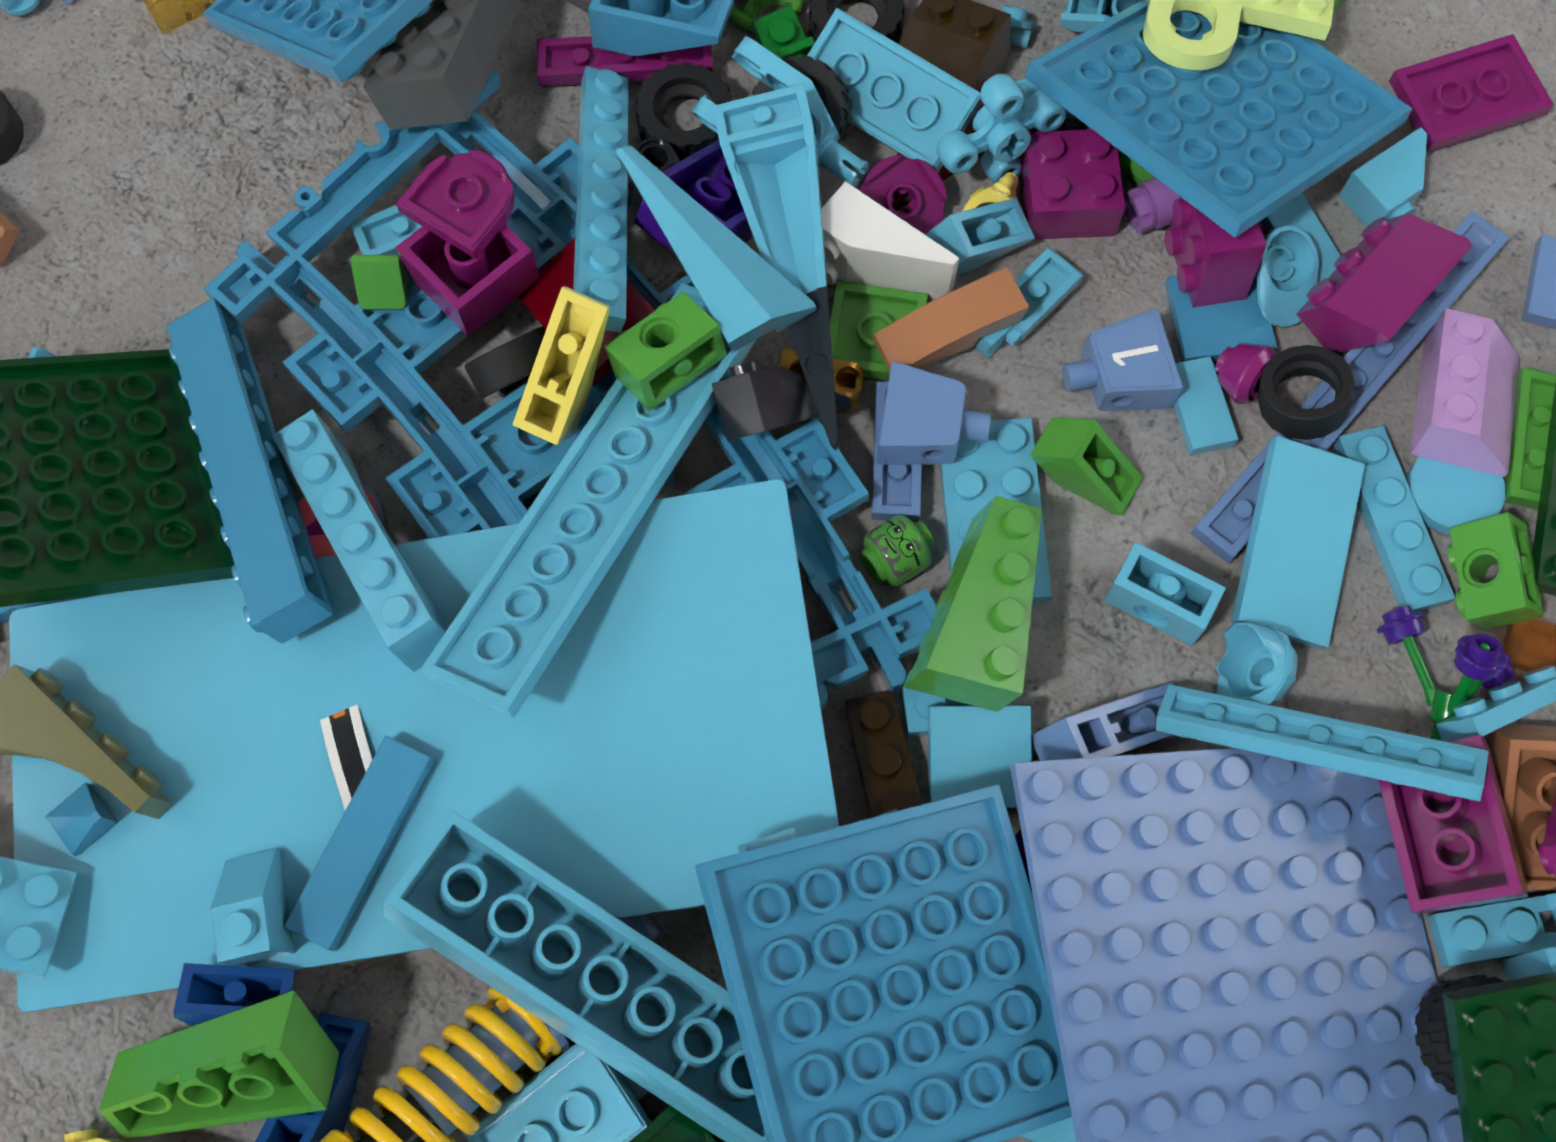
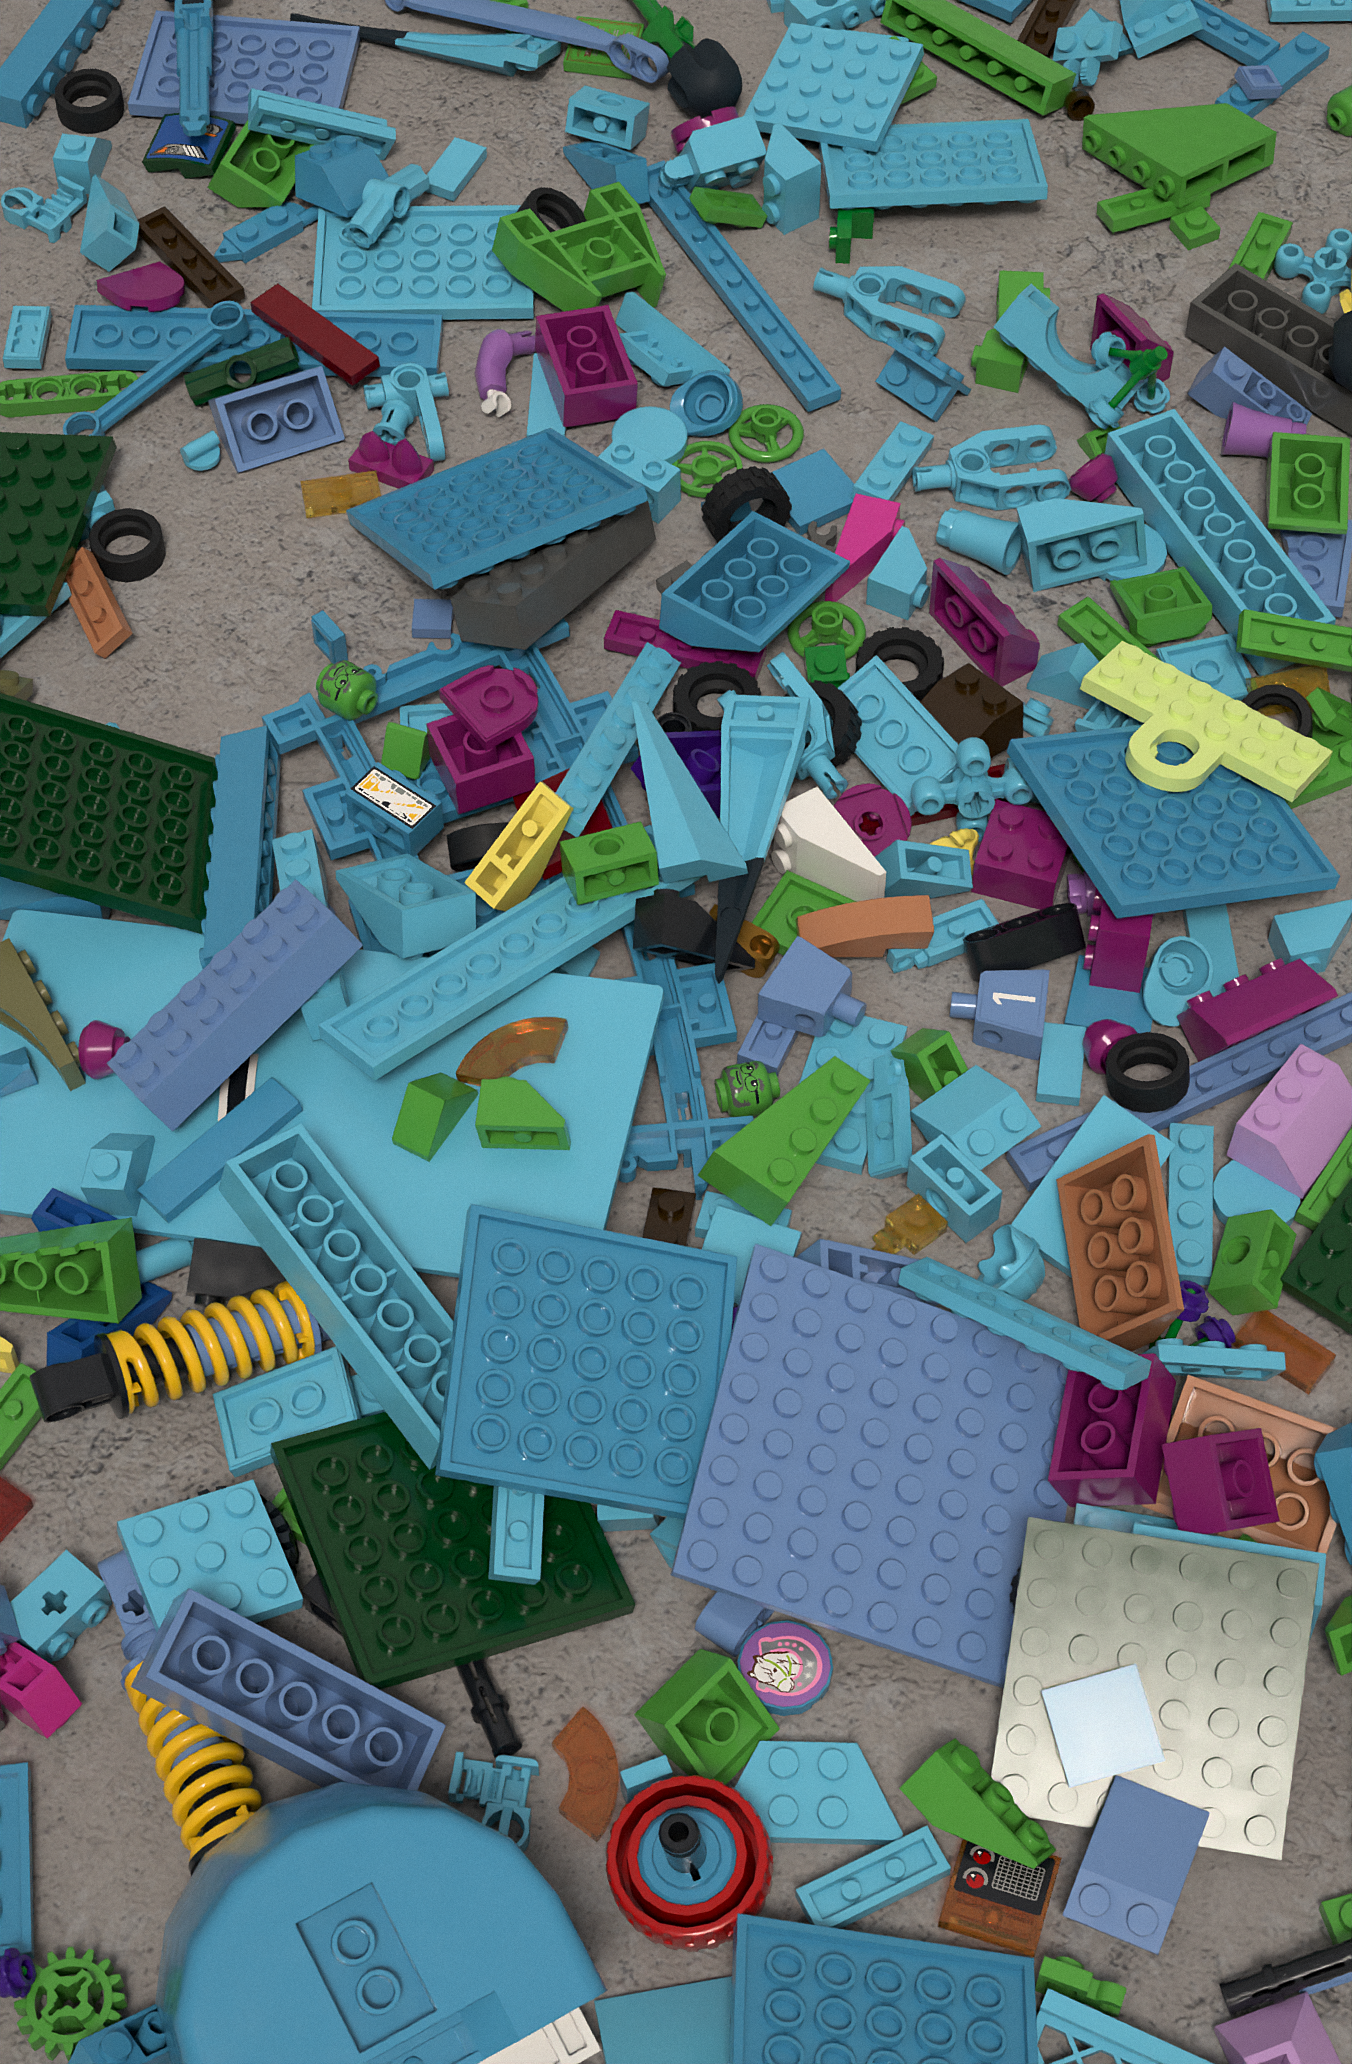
camera: 20 degrees right, 15 degrees down
(177, 764) = (98, 1046): none -> magenta cone
(241, 167) = (329, 637): none -> dark azure tile
(287, 229) = (347, 690): none -> bright green head
(311, 677) = (234, 1004): none -> medium blue brick
(340, 990) = (163, 1258): none -> medium azure cylinder
(344, 108) = (432, 618): none -> medium blue tile
(397, 356) = (395, 809): none -> brick
(419, 987) = (228, 1270): none -> black slope
(459, 468) = (409, 904): none -> medium azure slope
(586, 720) = (430, 1113): none -> bright green slope
(644, 611) = (513, 1048): none -> clear orange tile
(687, 697) = (518, 1117): none -> bright green slope
(1065, 538) = (888, 1119): none -> medium azure hinge
(1113, 282) = (1025, 940): none -> black beam
(1129, 648) = (910, 1226): none -> clear yellow plate
(1154, 504) = (976, 1116): none -> medium azure slope
(1392, 616) = (1121, 1246): none -> nougat slope

